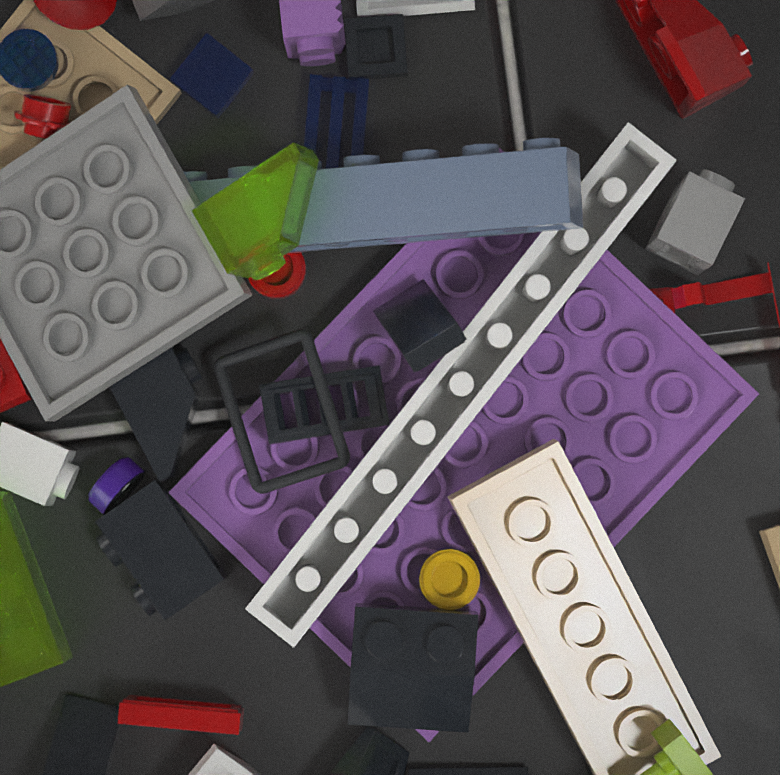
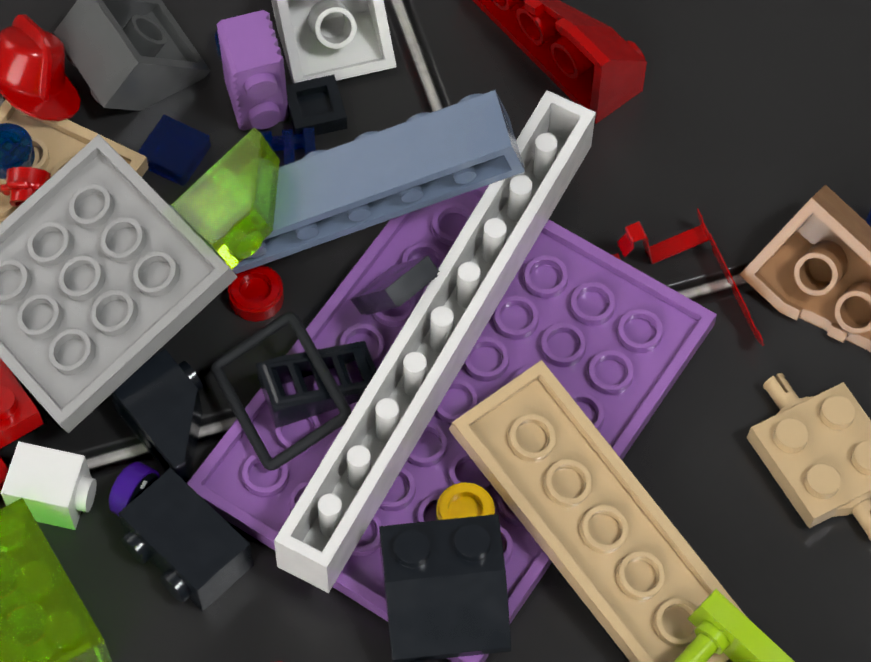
camera: 15 degrees left, 25 degrees down
(696, 221) = (623, 177): light grey brick -> none

